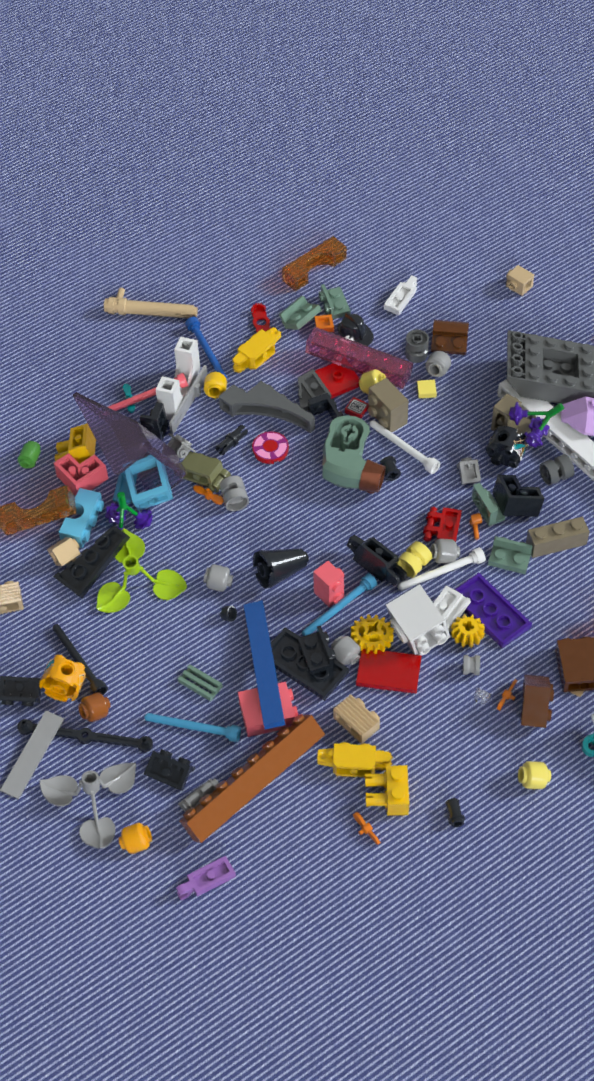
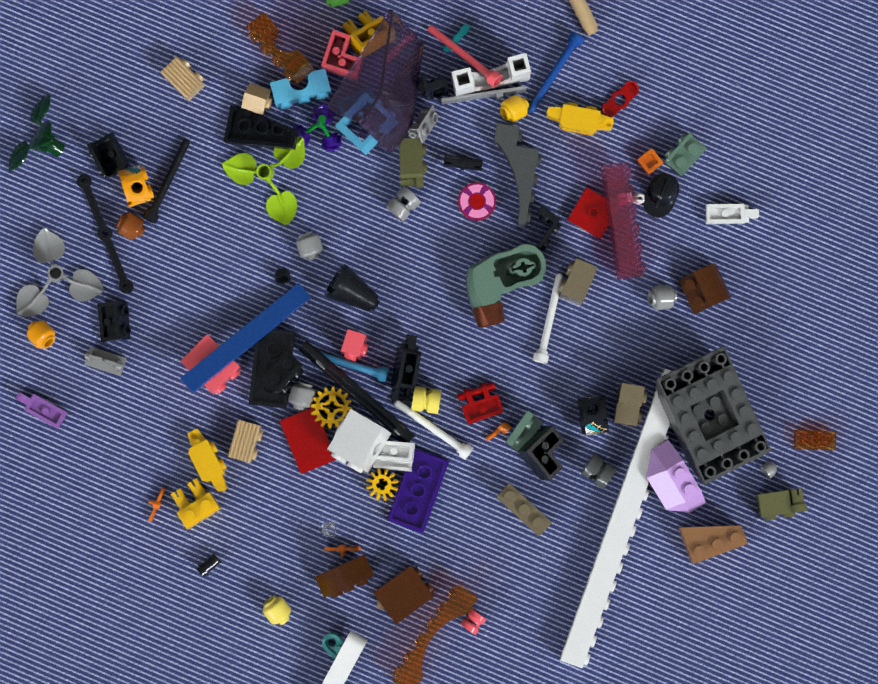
camera: 60 degrees right, 30 degrees up
(32, 755) = (63, 204): light grey piece -> none
(187, 674) = (205, 294): sand green tile -> none
(208, 494) = (393, 179): orange piece -> none
(231, 732) = (174, 348): dark azure piece -> none
(251, 778) = (142, 392): dark orange brick -> none
(299, 313) = (646, 132): sand green bracket -> none
(309, 387) = (562, 199): dark grey wing -> none
(329, 252) = (743, 111): clear orange arch -> none
(356, 408) = (568, 251): tile -> none
(356, 611) = (356, 392): none -> black piece
(369, 379) = (601, 250): light yellow head -> none
(391, 470) = (514, 322): black bush -> none
(417, 346) = (670, 265): dark grey wheel -> none
(426, 389) = (629, 301): light yellow tile -> none
(445, 551) = (451, 421): light grey head -> none
(469, 471) = (553, 393): light grey bracket -> none
(471, 665) = (350, 505): light grey wheel -> none
(510, 555) = (482, 479): sand green bracket -> none
(519, 280) = (816, 314): tan brick -> none
(537, 425) = (630, 432): dark purple plant -> none

